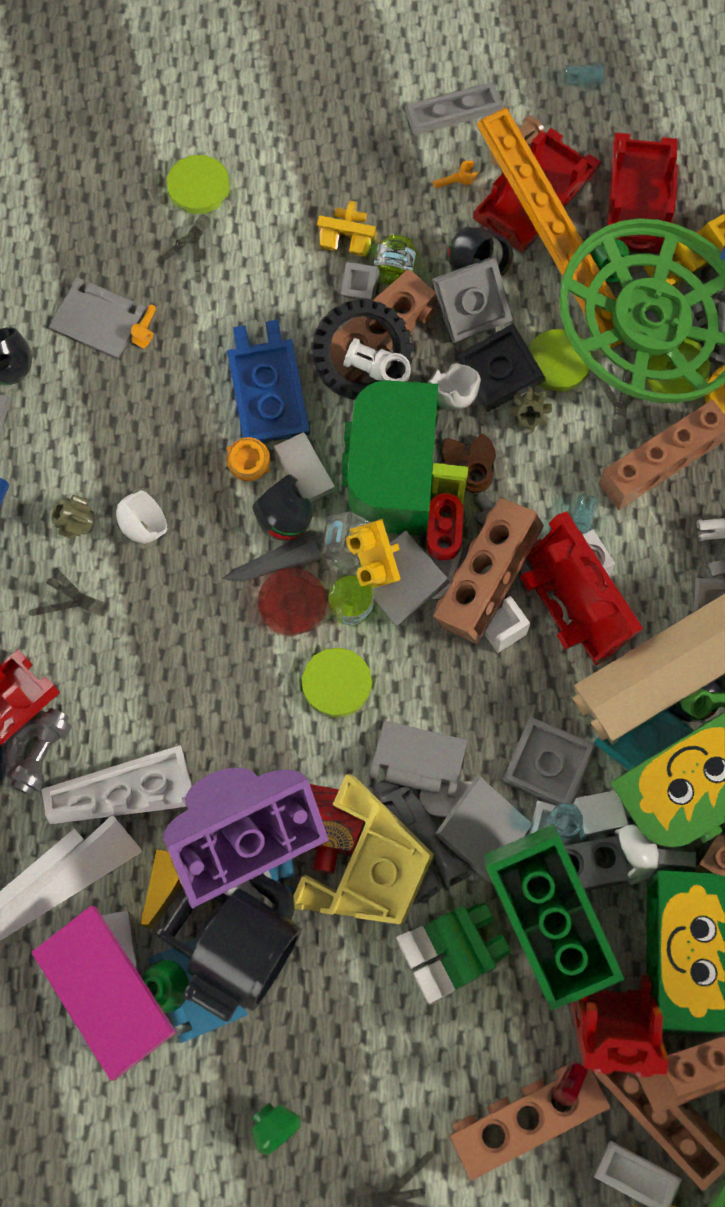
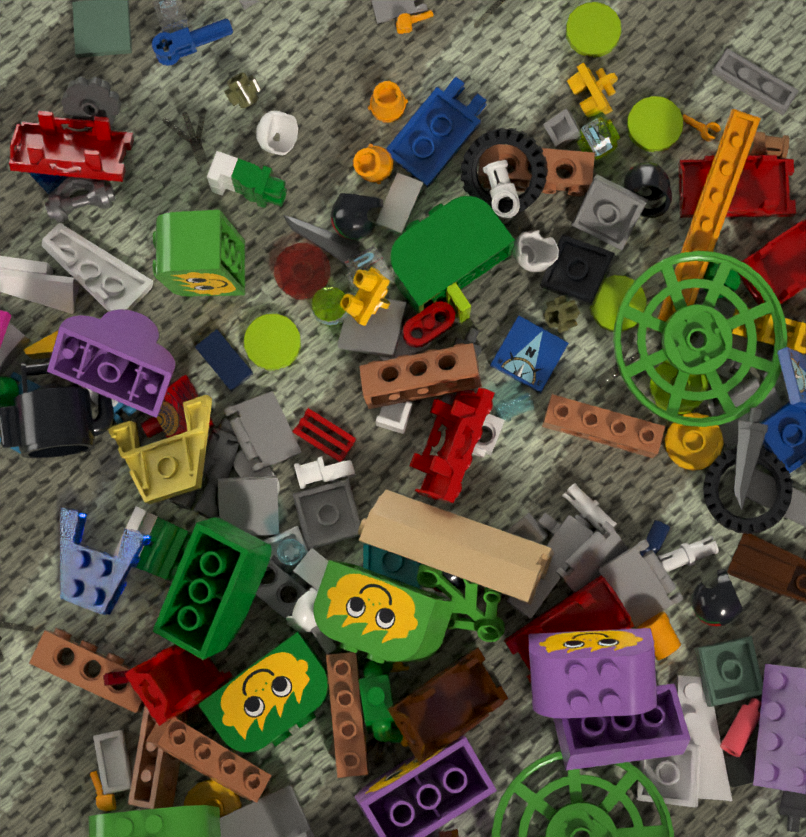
camera: 55 degrees right, 10 degrees up
(165, 577) = (246, 179): none -> green hips
(200, 403) = (387, 102): none -> light orange piece
(201, 669) = (199, 254): none -> bright green brick
(291, 192) = (593, 29): none -> lime tile
(315, 741) = (224, 360): none -> dark blue tile
(421, 209) = (655, 124): none -> lime tile
(431, 1040) = (90, 575): none -> clear blue wing
(477, 458) = (491, 299): reddish brown plate -> none
(497, 696) = (304, 423): none -> red tile
(502, 735) = (318, 471): none -> white connector
(543, 467) = (529, 354): none -> blue tile

